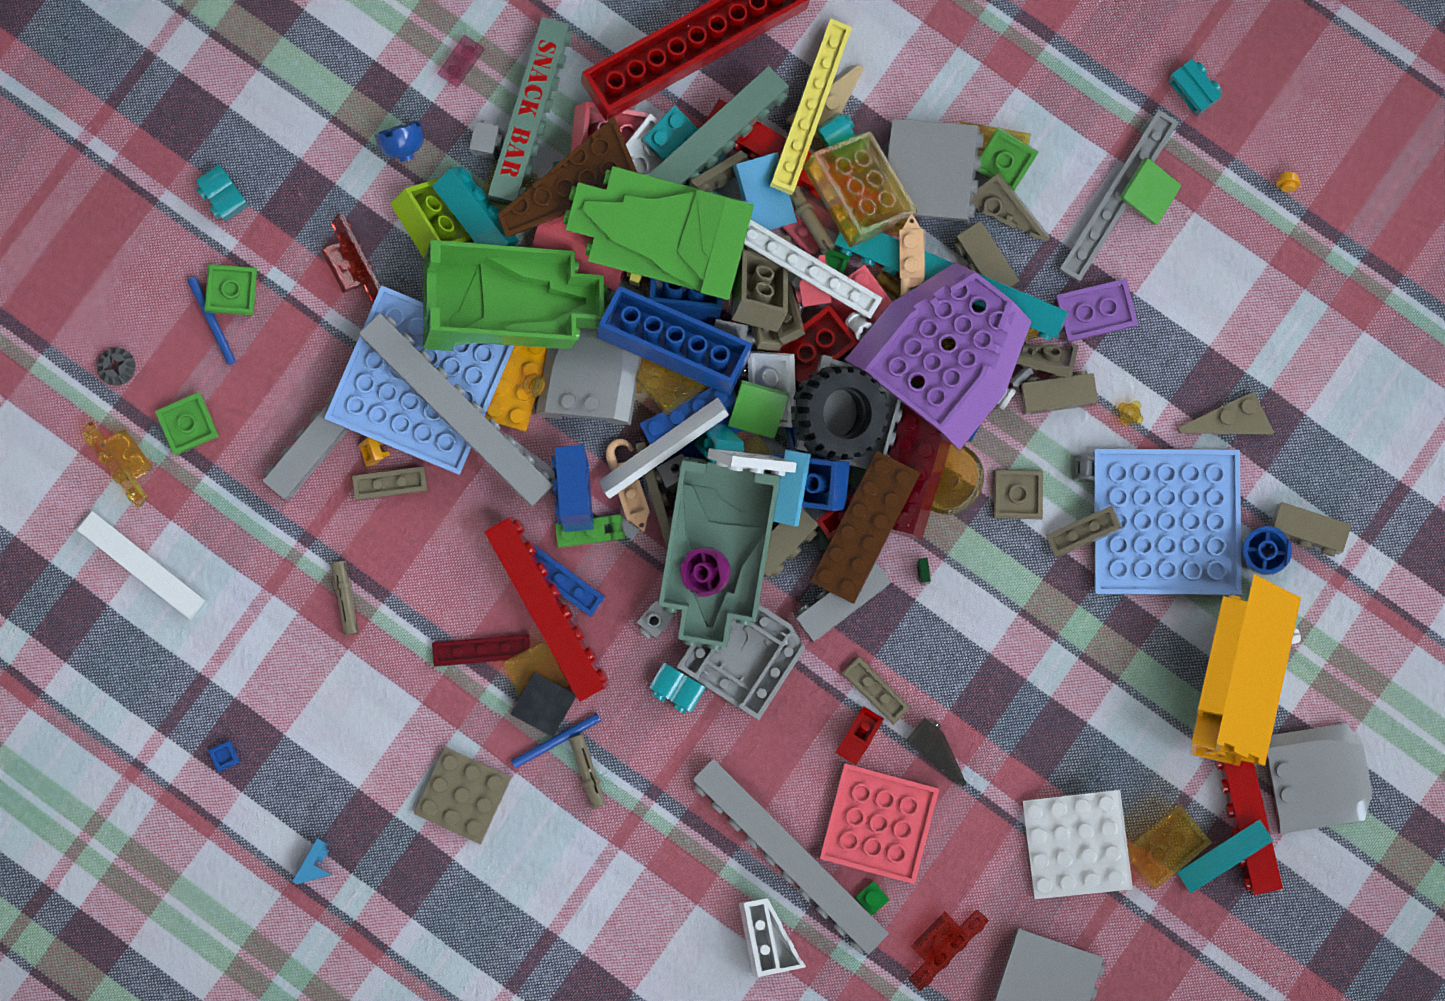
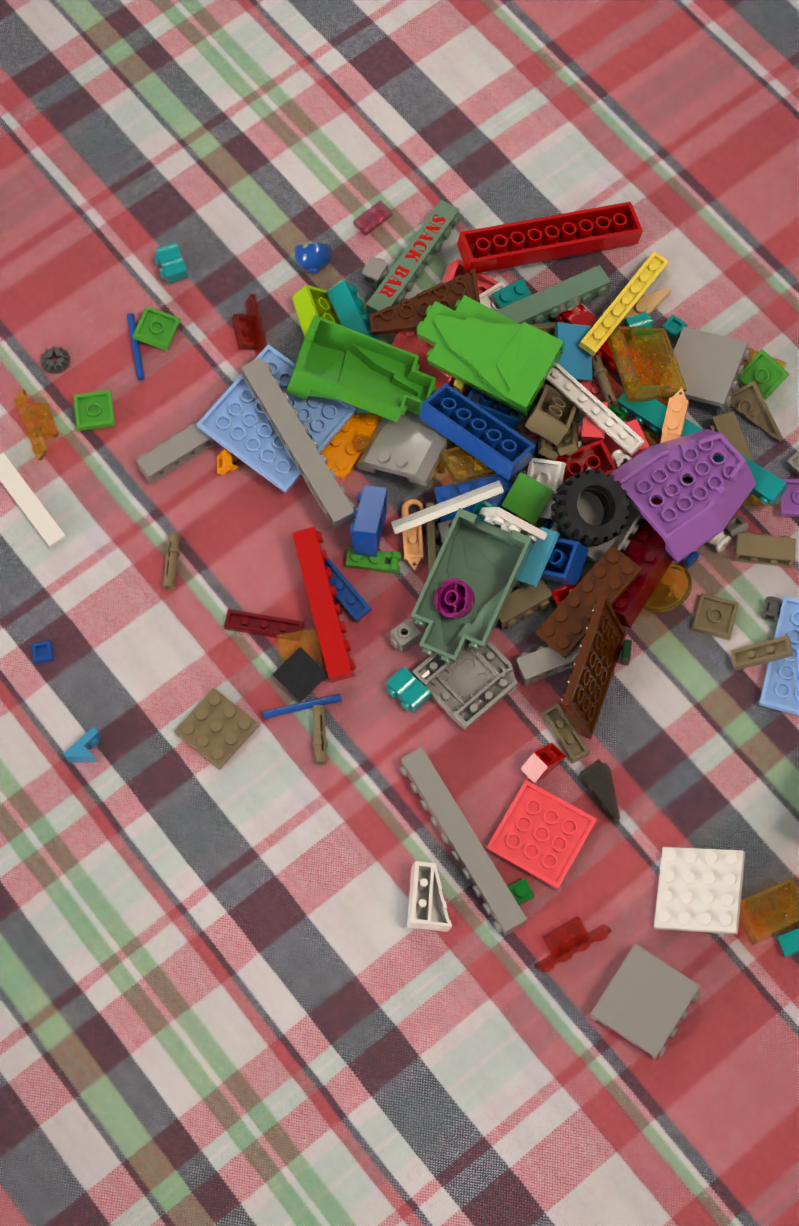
camera: 15 degrees right, 15 degrees down
(390, 483) = (231, 488): dark tan plate -> none
(879, 116) = (674, 326): none -> teal tile
(892, 610) = (594, 667): none -> reddish brown plate
(1049, 358) = (762, 519): dark tan wing -> none

